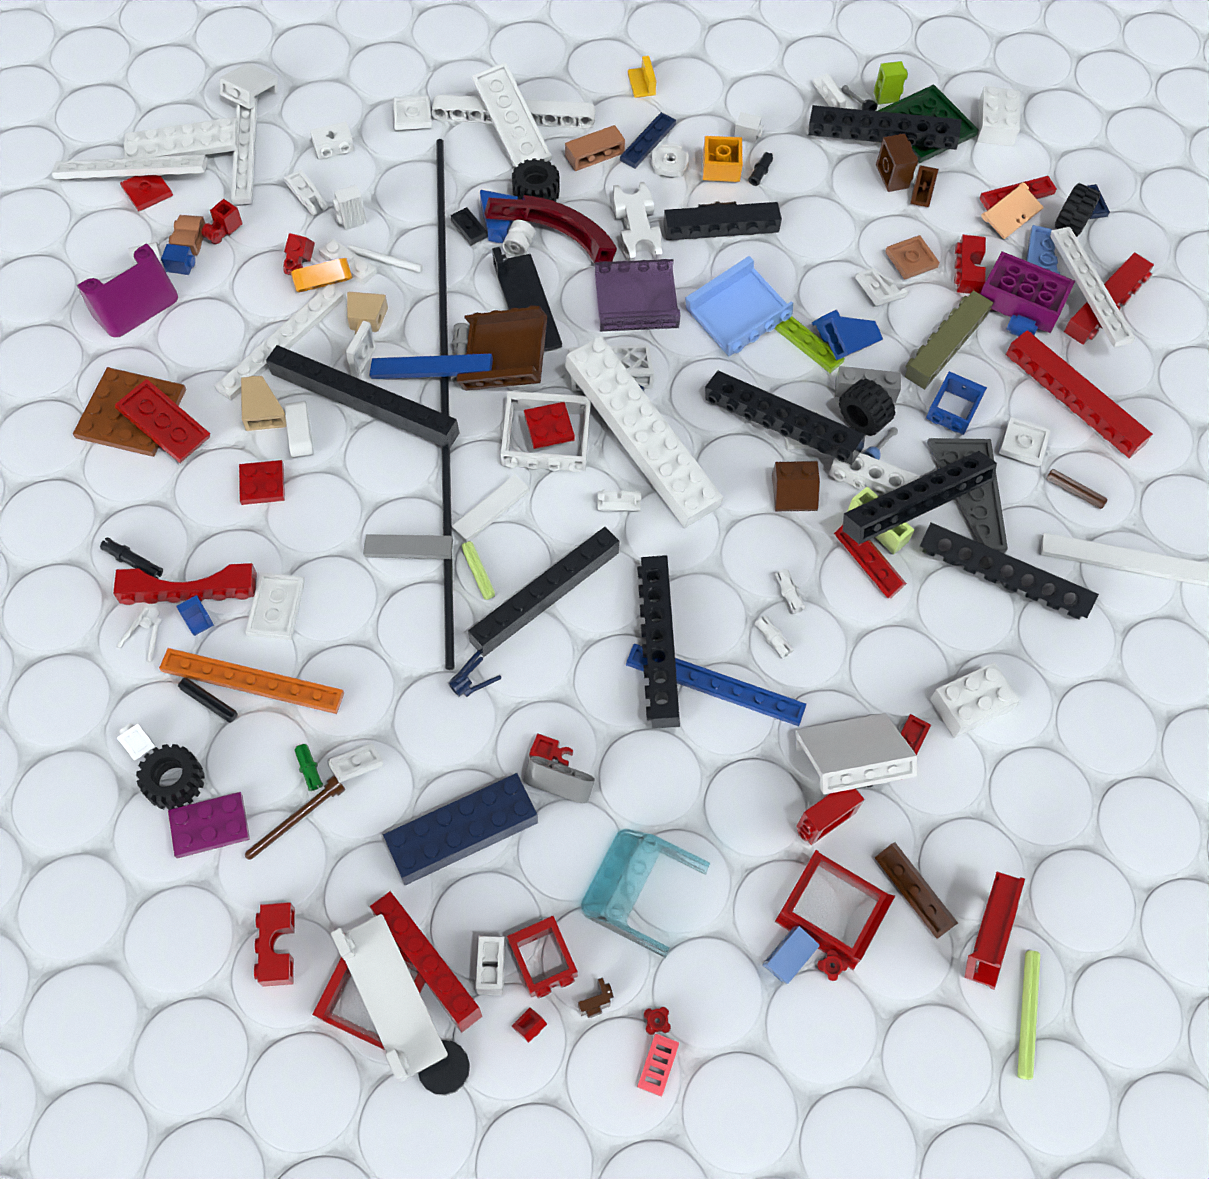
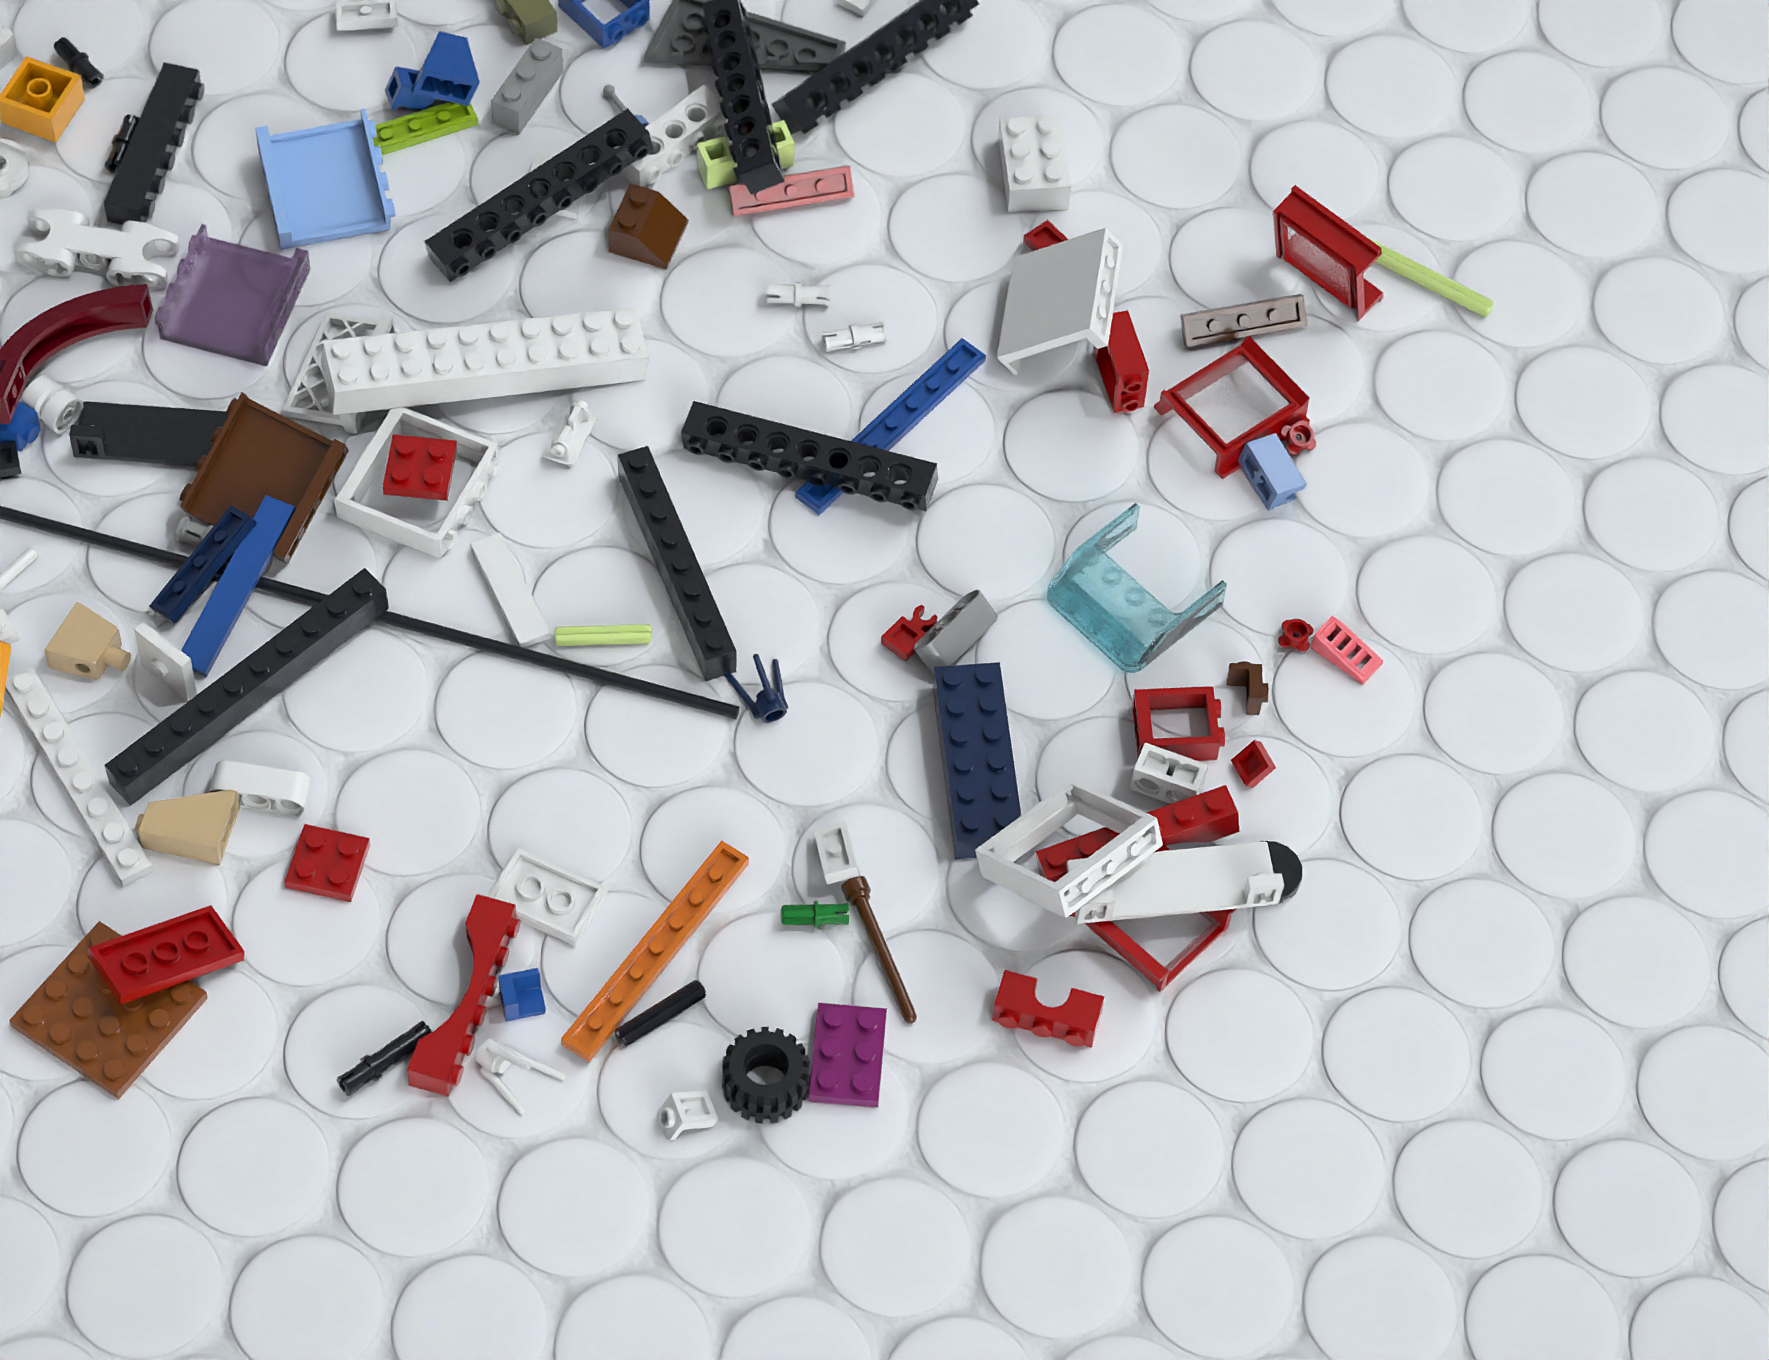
camera: 70 degrees left, 5 degrees down
(361, 938) = (1136, 841): none -> white window
(408, 546) = (528, 704): light grey tile -> none
(437, 344) = (202, 564): none -> dark blue tile
(867, 407) = (573, 96): black tyre -> none

